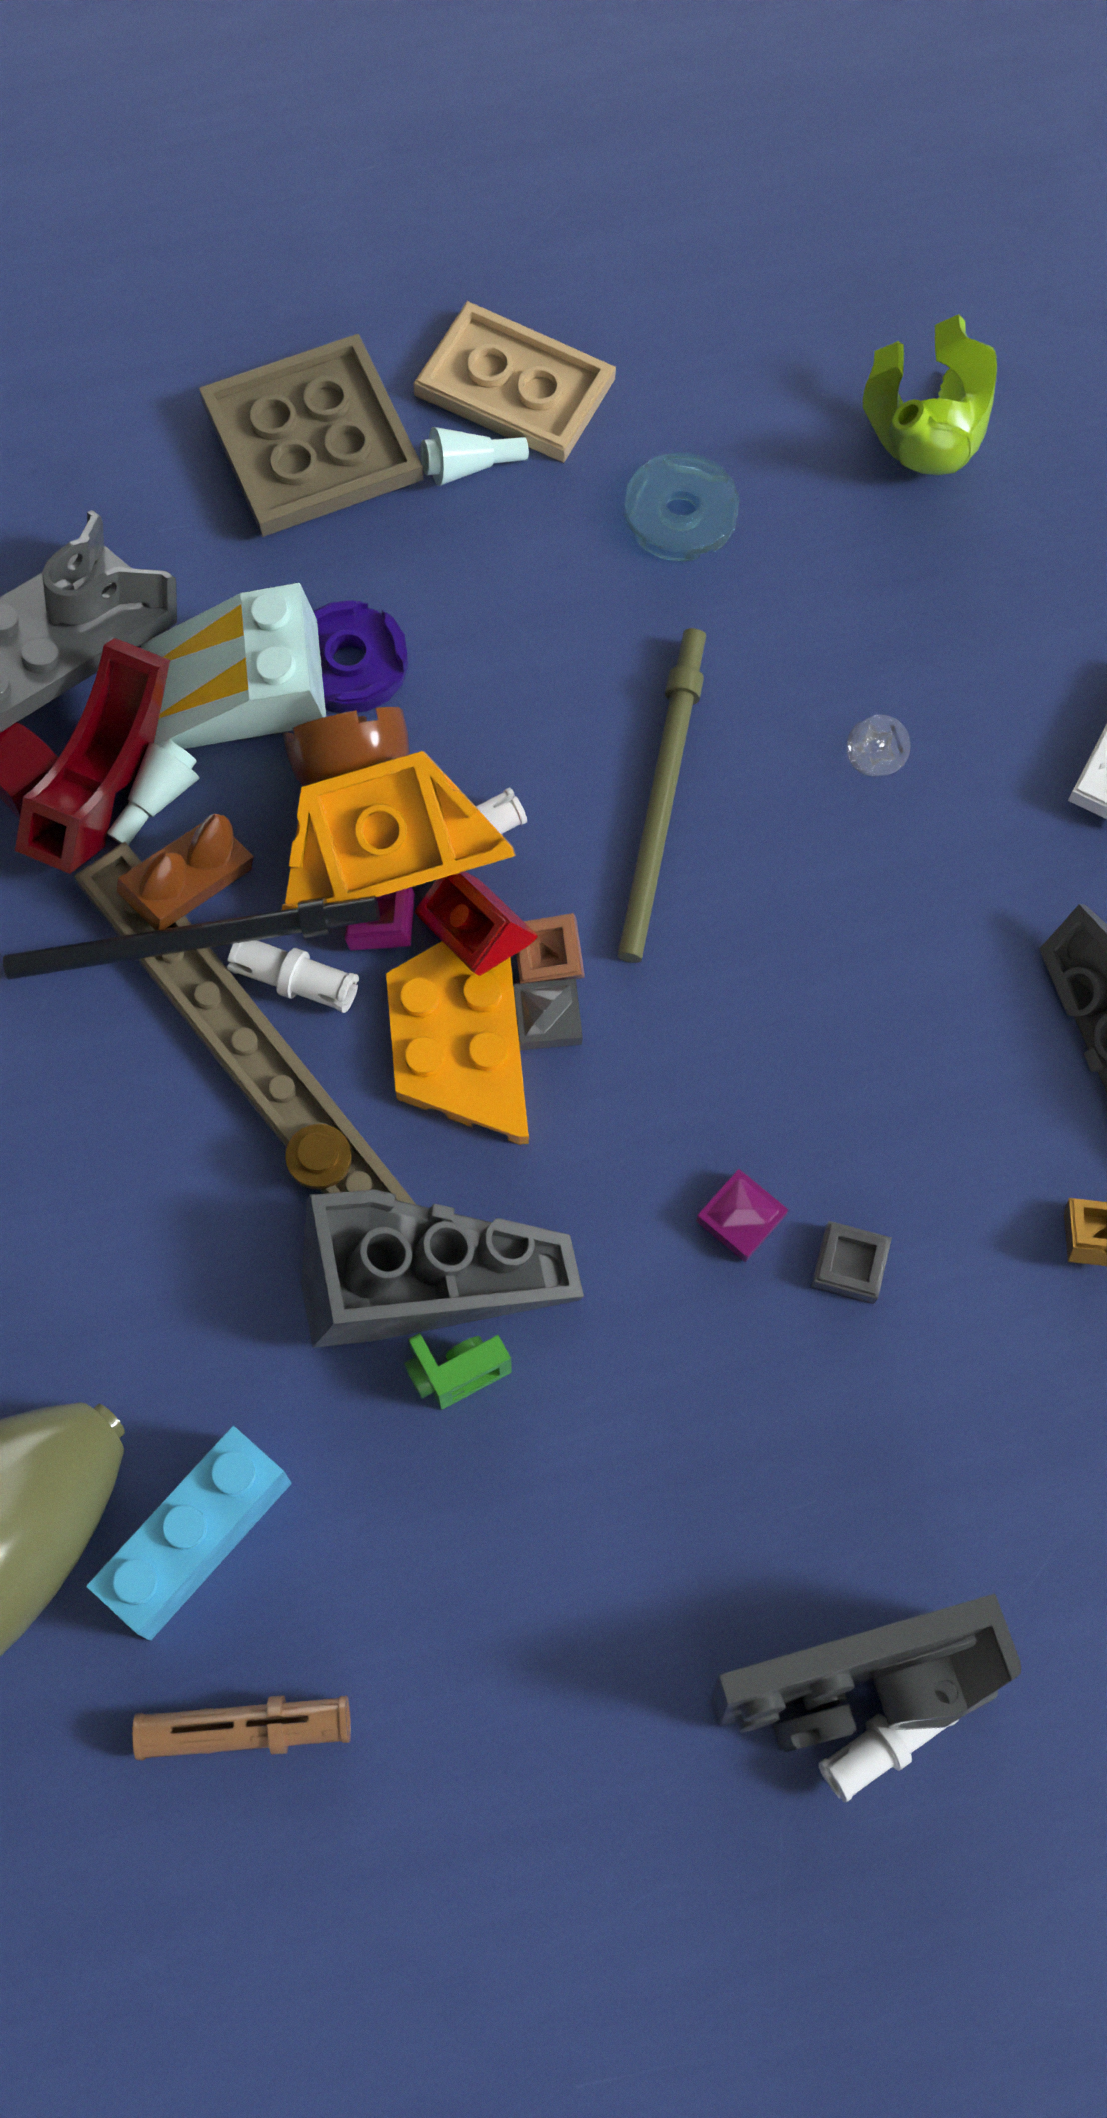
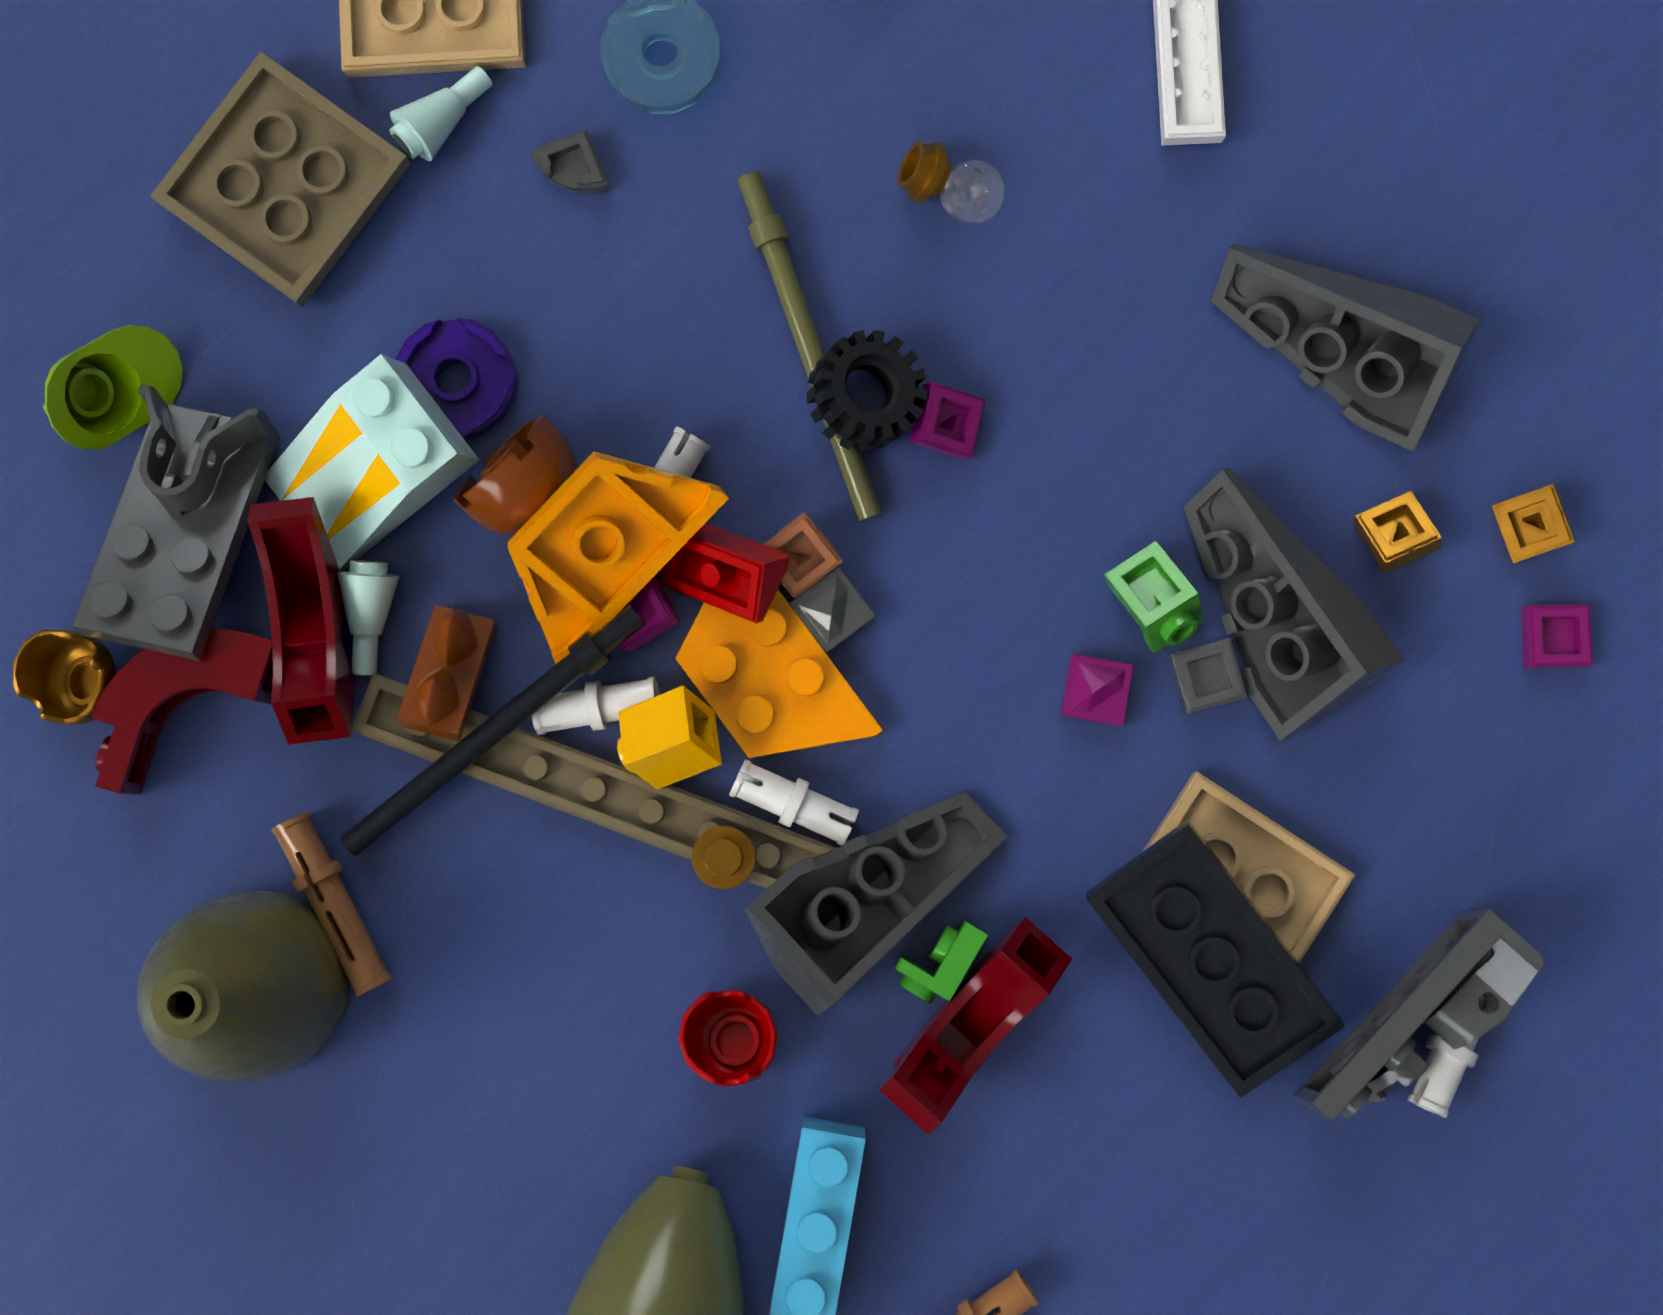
camera: 25 degrees left, 15 degrees up
(50, 497) = (95, 388): none -> lime piece
(219, 1316) = (728, 1038): none -> red hair
(337, 1027) = (669, 738): none -> yellow brick
(410, 1150) = (794, 802): none -> white pin
(450, 1435) = (969, 1027): none -> dark red arch
(553, 550) = (572, 164): none -> dark grey tile
(708, 1512) = (1214, 959): none -> black plate
(712, 827) = (889, 367): none -> black tyre
(745, 914) = (948, 421): none -> magenta tile
(779, 1459) = (1277, 870): none -> tan tile
(844, 1165) = (1157, 597): none -> bright green bracket
(846, 706) = (924, 171): none -> pearl gold plate
(960, 1258) = (1295, 622): none -> dark grey wedge

